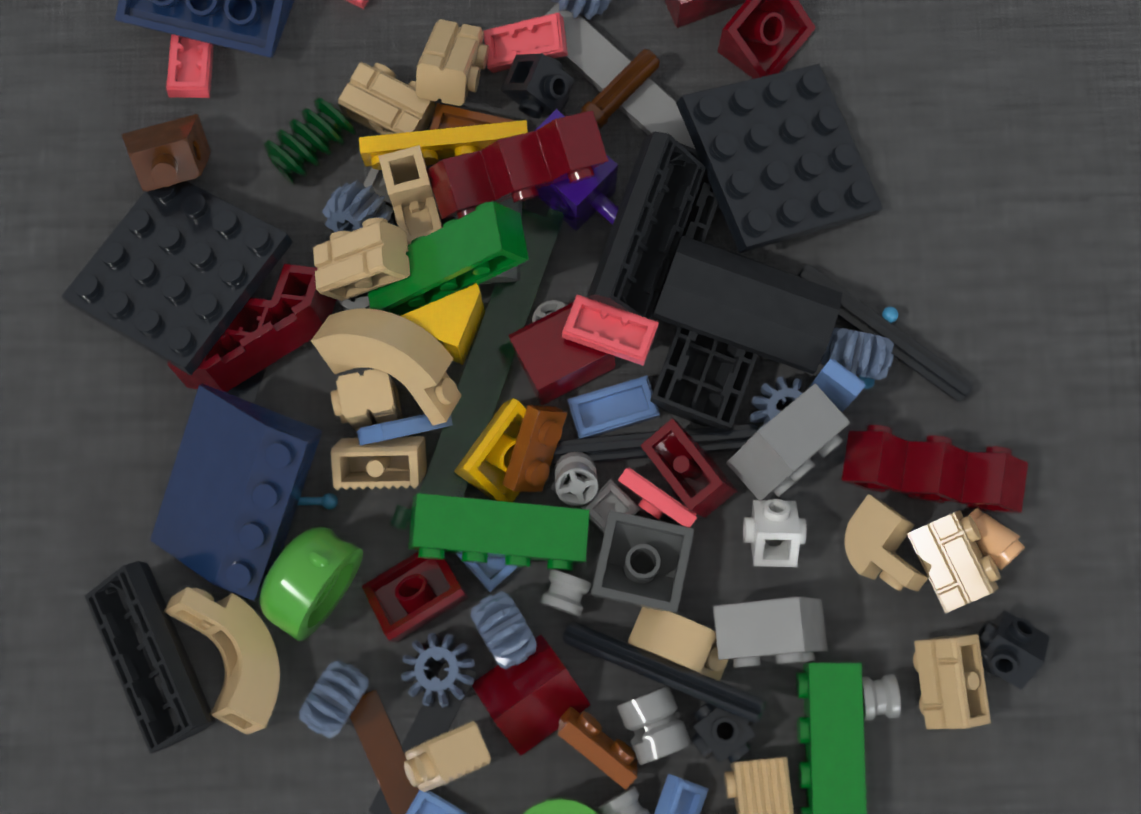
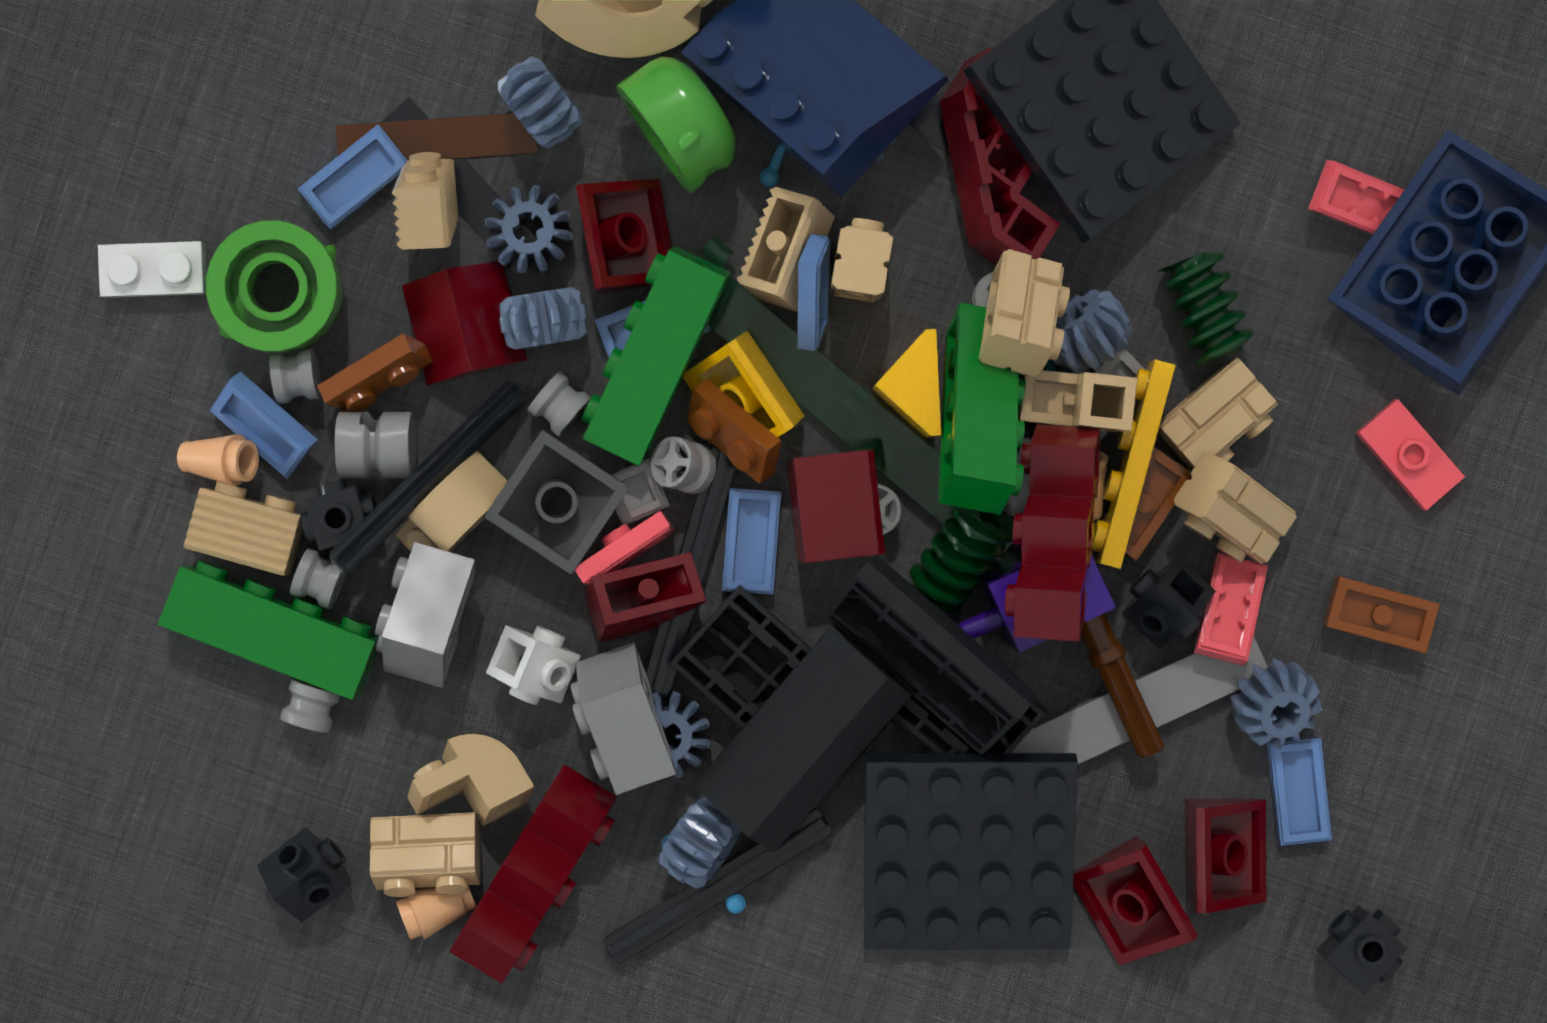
camera: 115 degrees right, 10 degrees up
(166, 152) = (1252, 135): reddish brown torso -> none
(396, 347) = (903, 312): tan arch -> none
(563, 242) = (961, 556): none -> dark green piece
(610, 329) = (828, 566): coral plate -> none
(777, 730) = (317, 579): none -> light grey wheel
(838, 384) = (671, 803): medium blue tile -> none
(951, 682) = (294, 792): tan brick -> none

